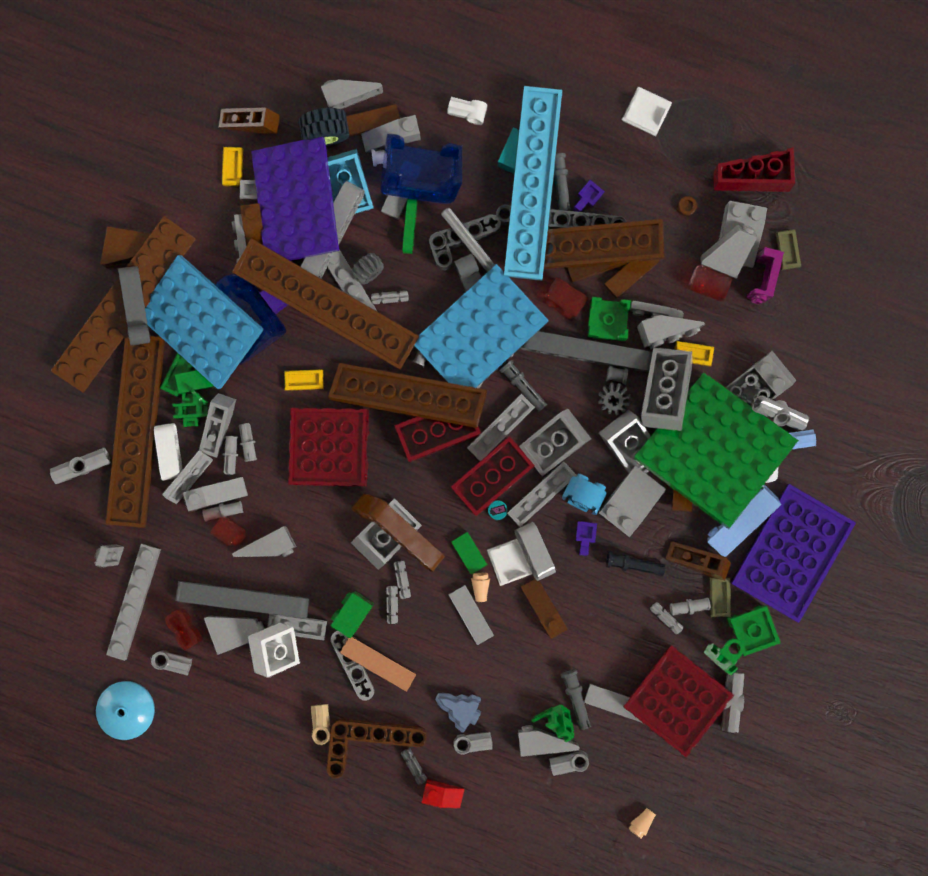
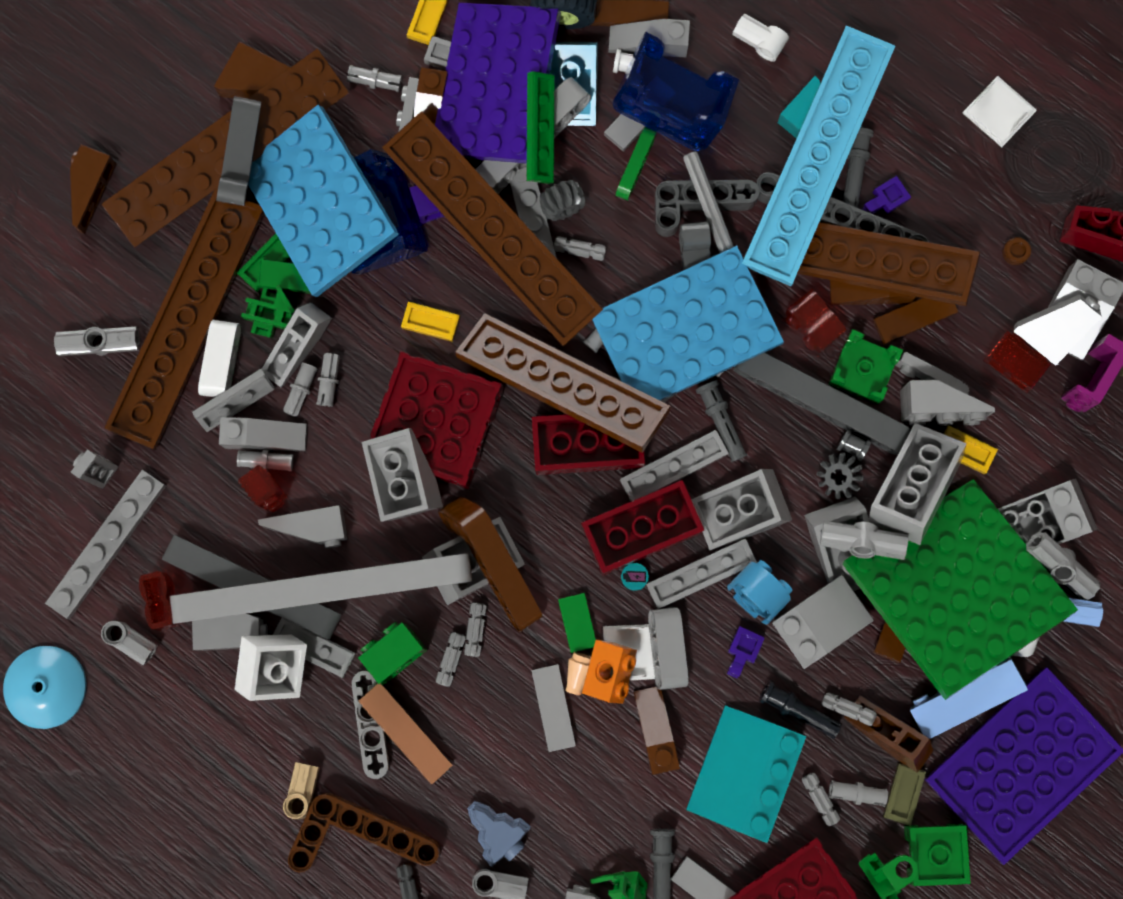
camera: 20 degrees right, 5 degrees down
(35, 355) = (89, 178): none -> reddish brown slope
(209, 222) = (374, 78): none -> light grey pin
(290, 587) = (321, 588): none -> light grey beam
(318, 493) = (400, 476): none -> light grey slope
(336, 224) = (540, 127): none -> green tile
(495, 587) = (598, 678): none -> orange brick
(612, 617) = (746, 773): none -> teal slope
(643, 439) = (864, 540): none -> light grey piece
(667, 553) = (849, 709): none -> light grey axle

